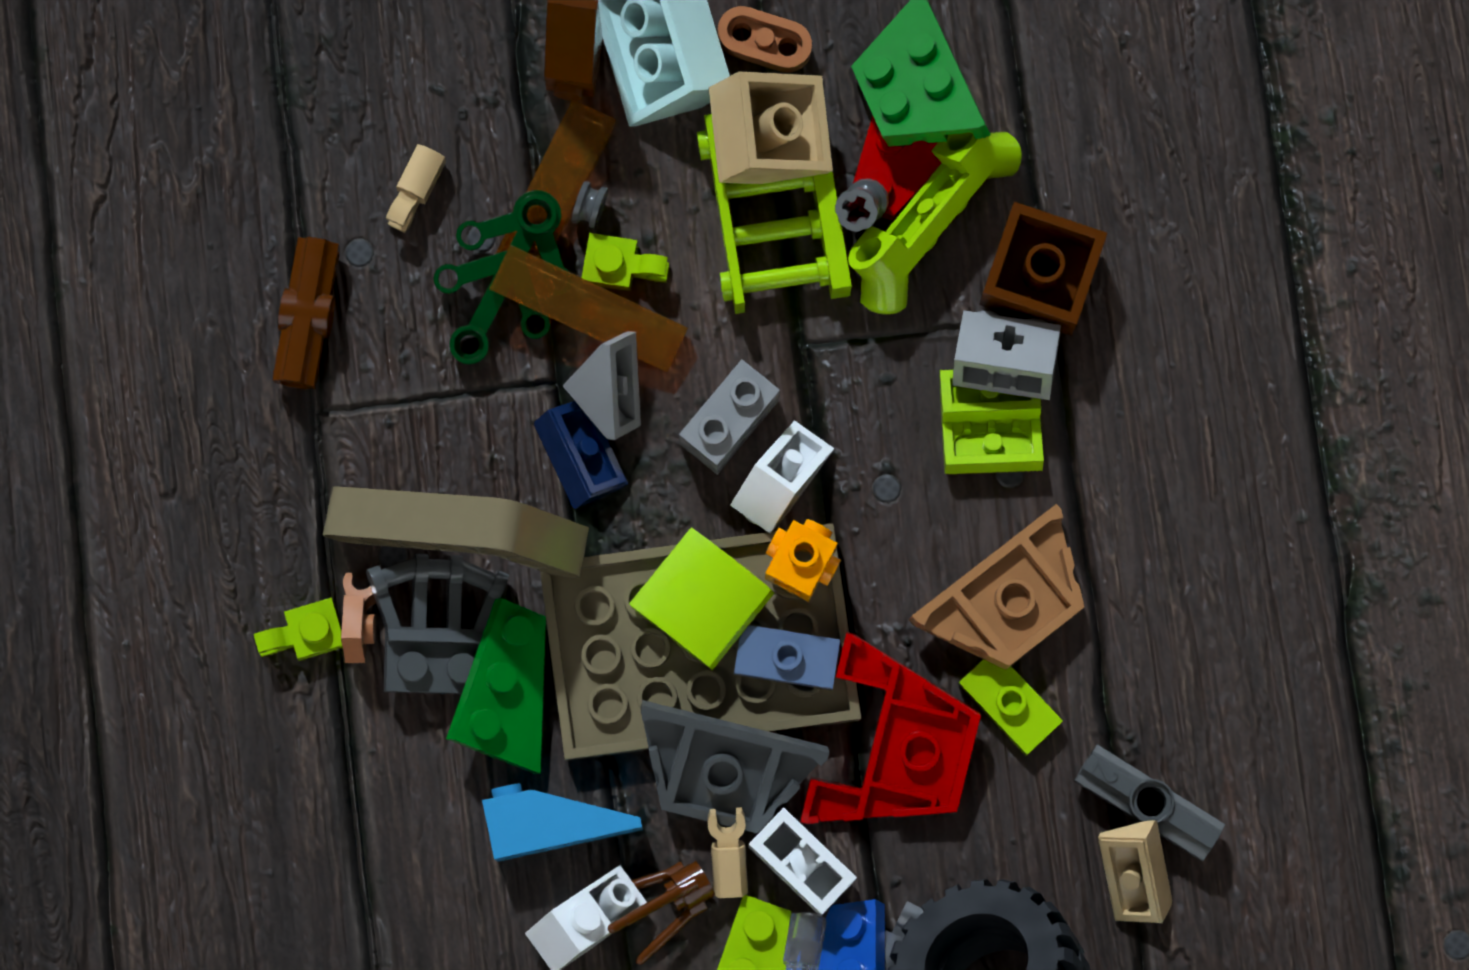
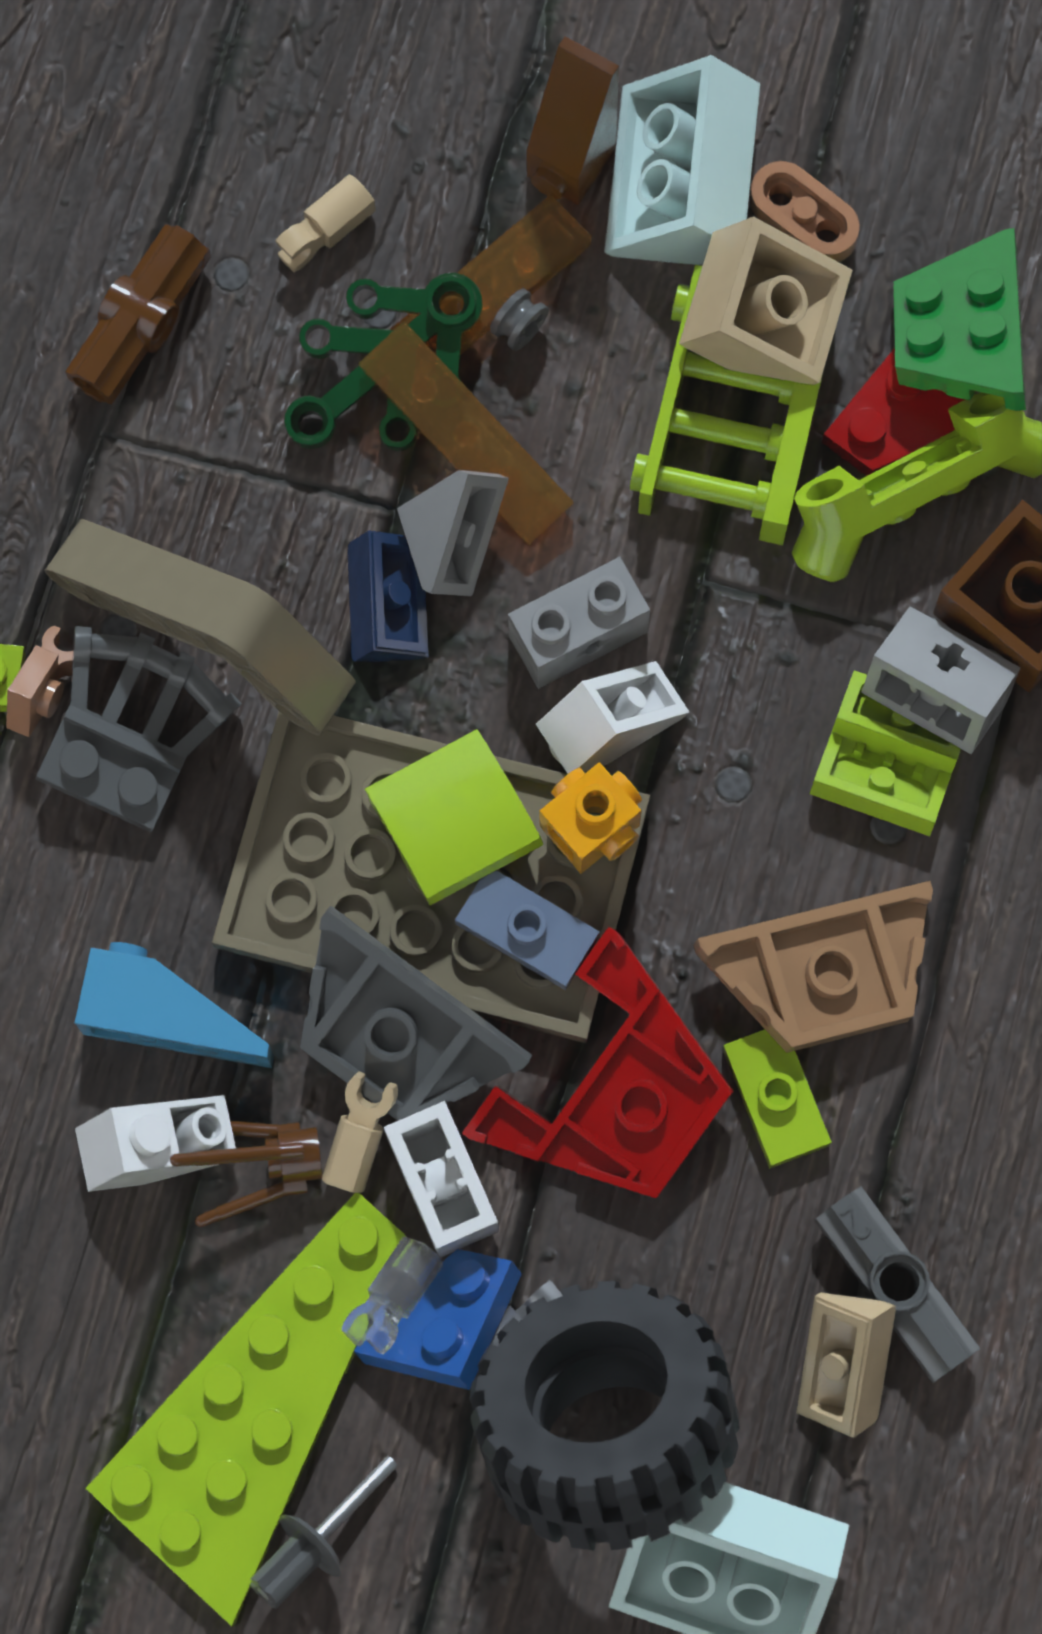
camera: 25 degrees right, 5 degrees down
(504, 689) = (176, 832): green wing -> none
(614, 263) = (524, 398): lime plate -> none
(848, 205) = (856, 435): dark grey bush -> none

